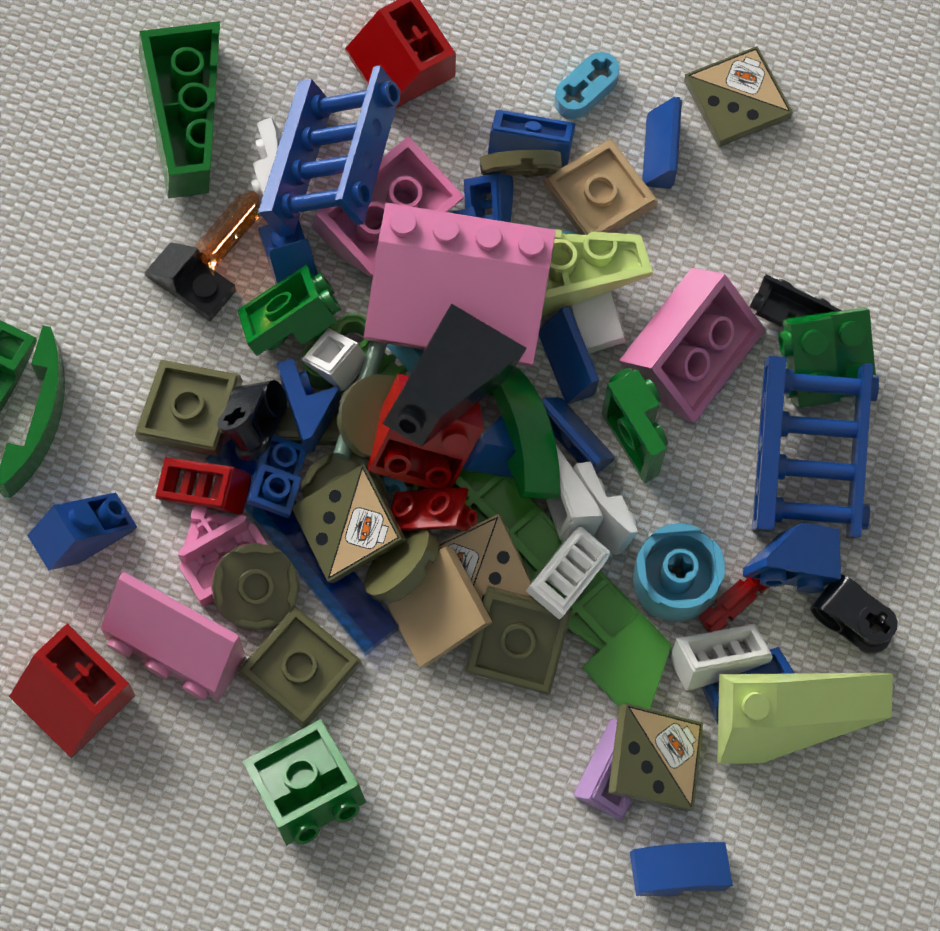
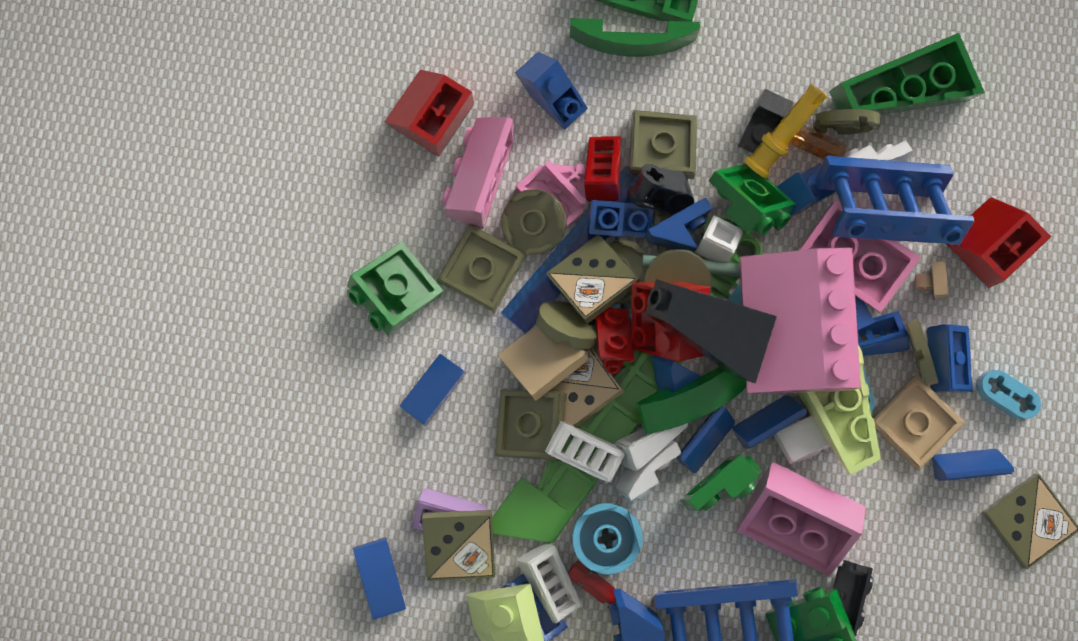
camera: 80 degrees right, 10 degrees up
(217, 182) = (847, 121): none -> olive tile
(224, 269) = (776, 143): none -> yellow pin
(435, 129) = (935, 281): none -> tan tile
(448, 758) = (433, 389): none -> blue slope

